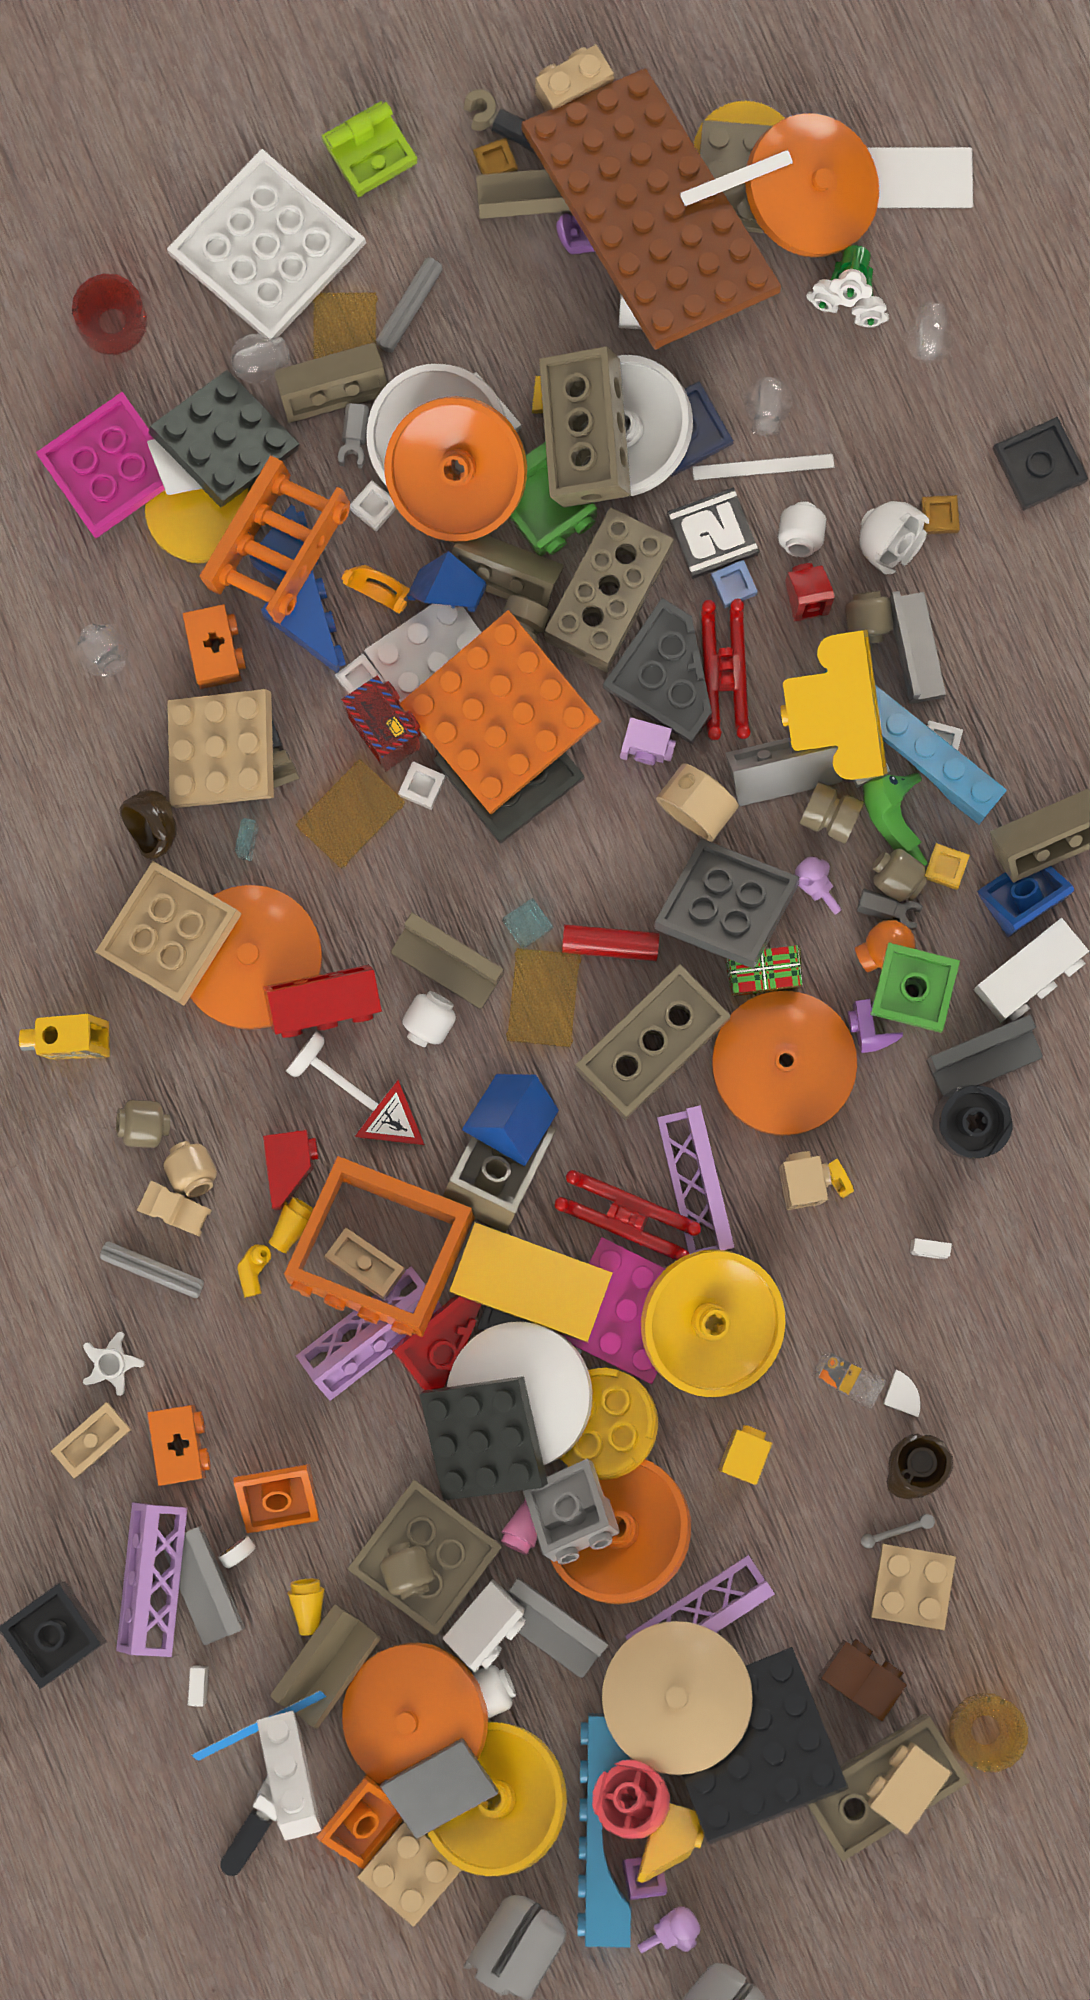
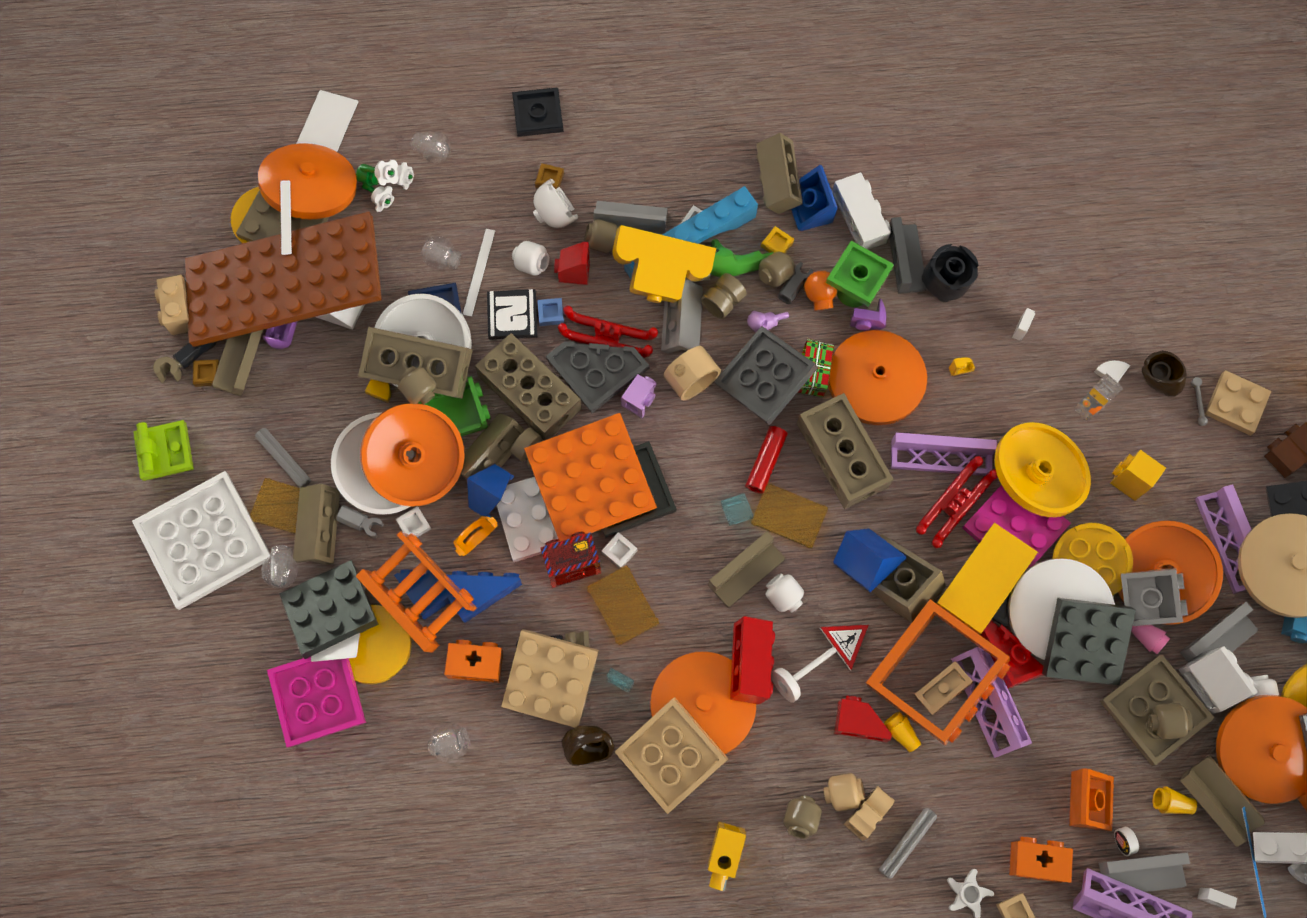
camera: 75 degrees left, 10 degrees down
(107, 293) = (192, 654): clear red piece -> none
(249, 1268) = (924, 771): yellow arm -> none
(357, 674) = (531, 569): white tile -> none
(543, 439) = (417, 385): none -> dark tan head
(804, 1180) = (964, 384): tan brick -> none

